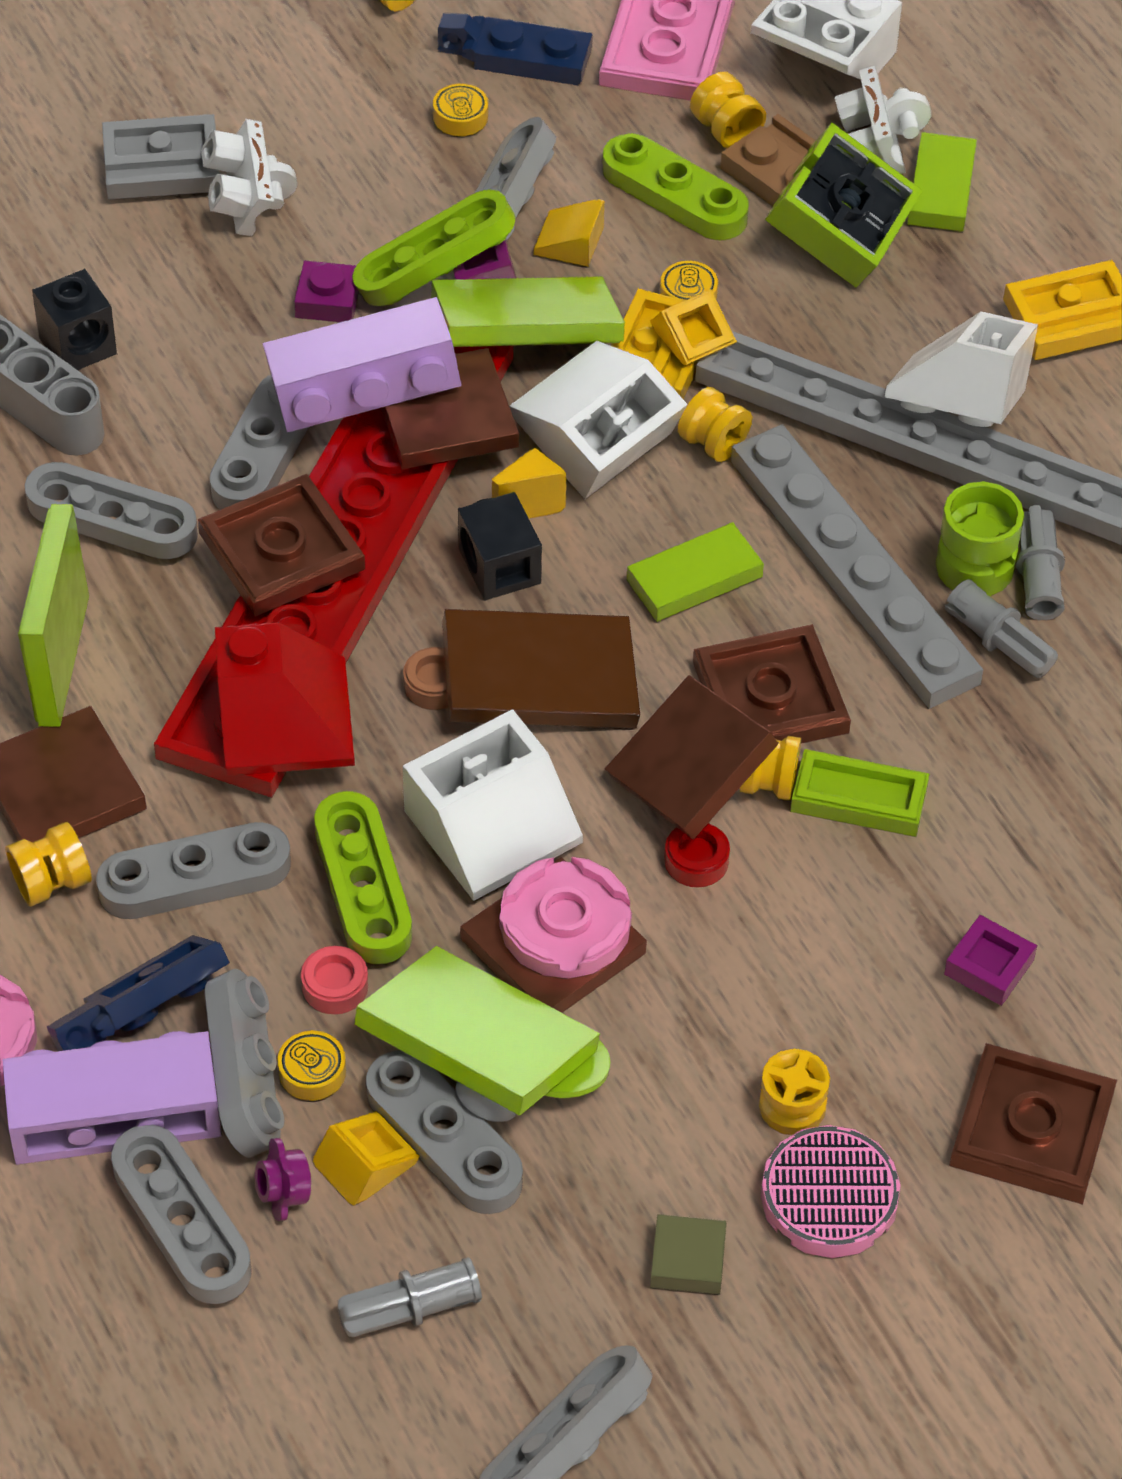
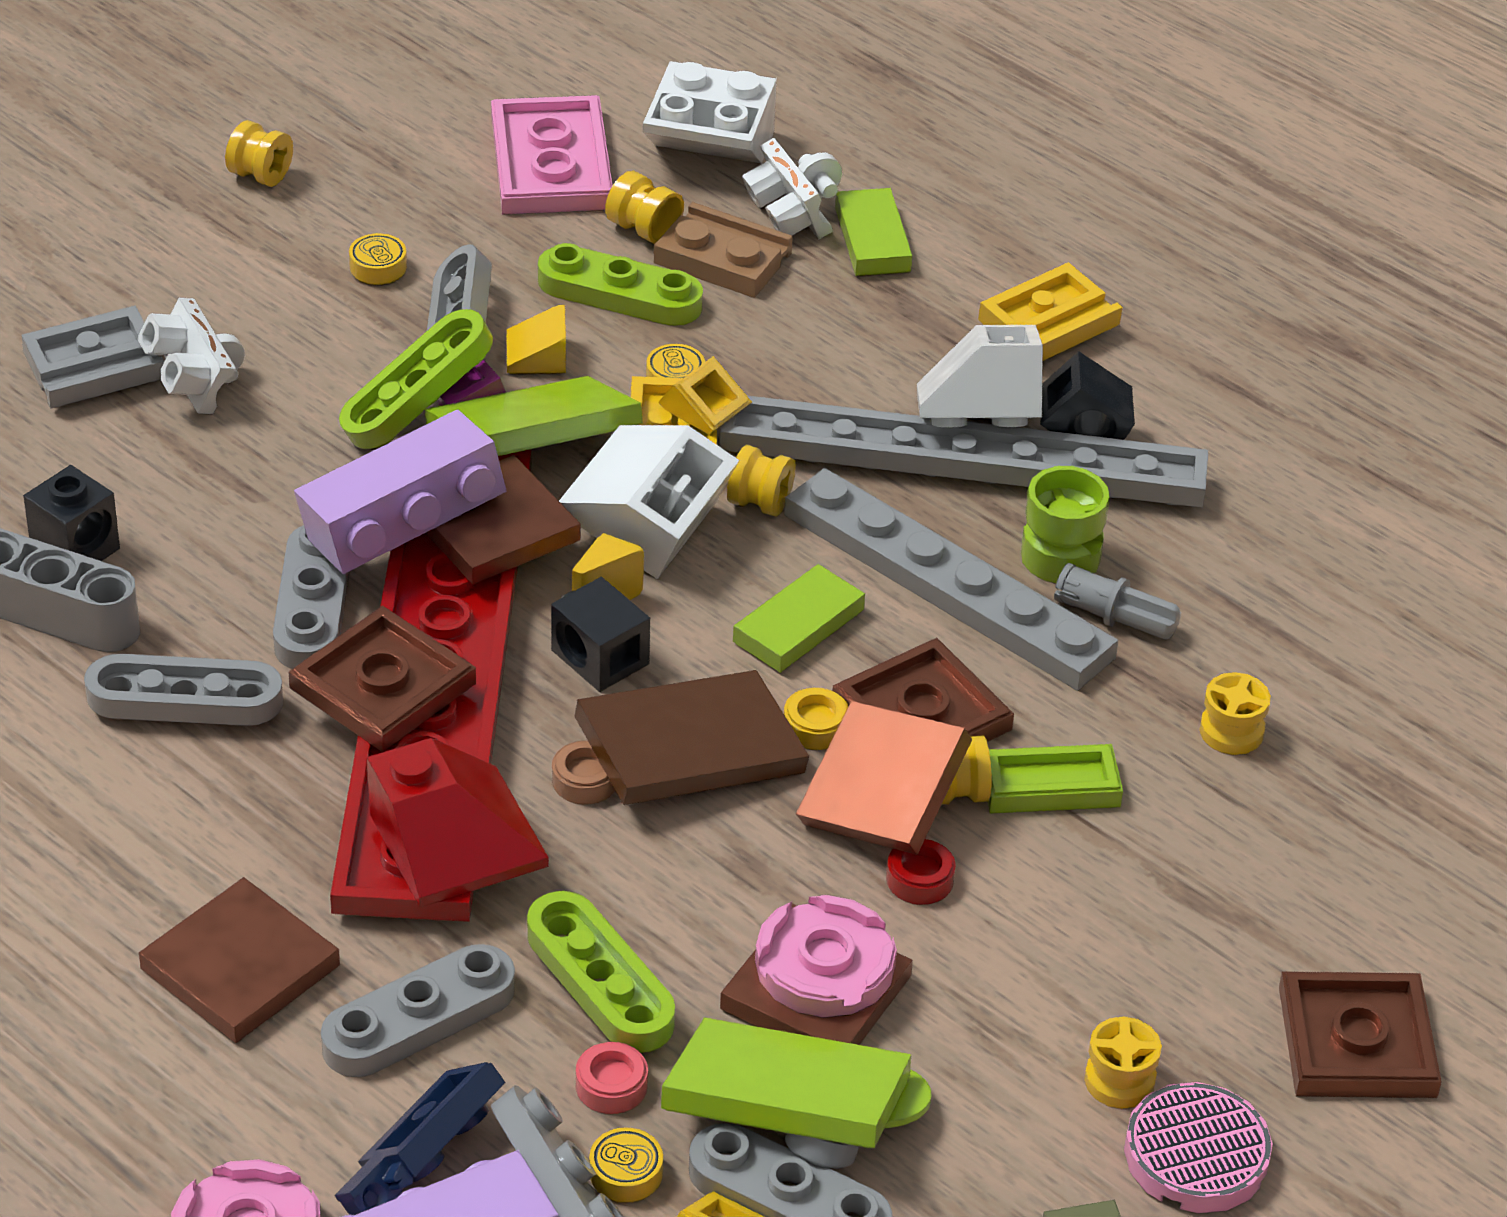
camera: 20 degrees left, 10 degrees down
(48, 864) = (267, 1037): yellow wheel -> none
(54, 615) = (181, 792): lime tile -> none
(326, 292) = (315, 445): magenta plate -> none
(490, 804) = (703, 868): white slope -> none
(517, 47) = (408, 194): dark blue hinge -> none
(662, 672) = (815, 716): none -> yellow tile
(844, 205) = (800, 263): piece -> none
(990, 960) = (1251, 895): magenta plate -> none
(1041, 565) = (1128, 540): light grey axle -> none
(1053, 758) = (1235, 713): none -> yellow wheel
(1058, 416) = (1087, 400): none -> black brick

